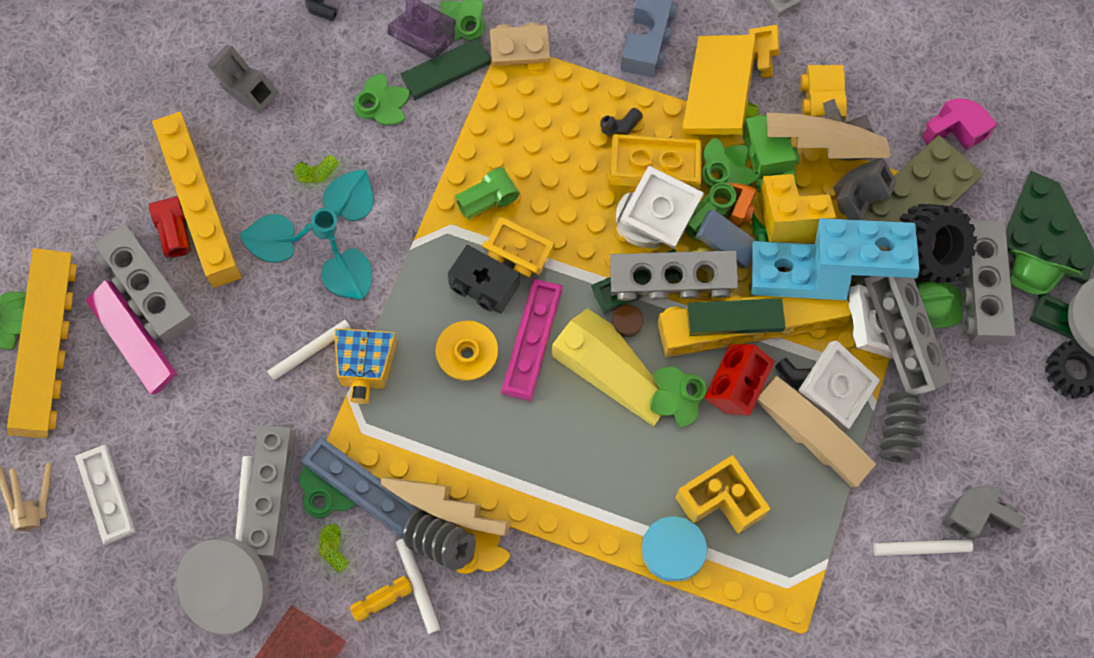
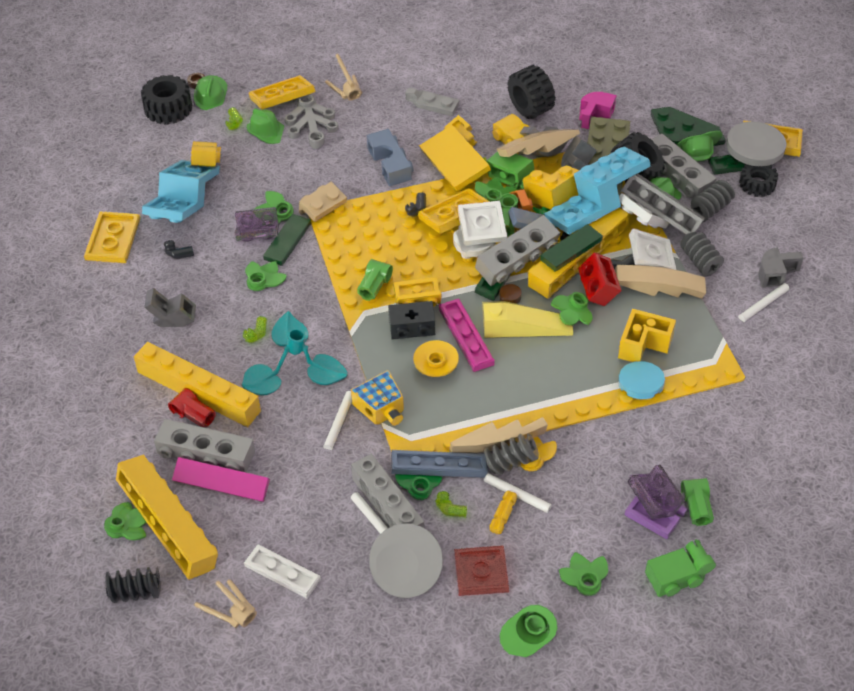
camera: 35 degrees left, 20 degrees down
(890, 50) = (531, 91): none -> black tyre
(985, 358) = (713, 199): none -> dark grey piece

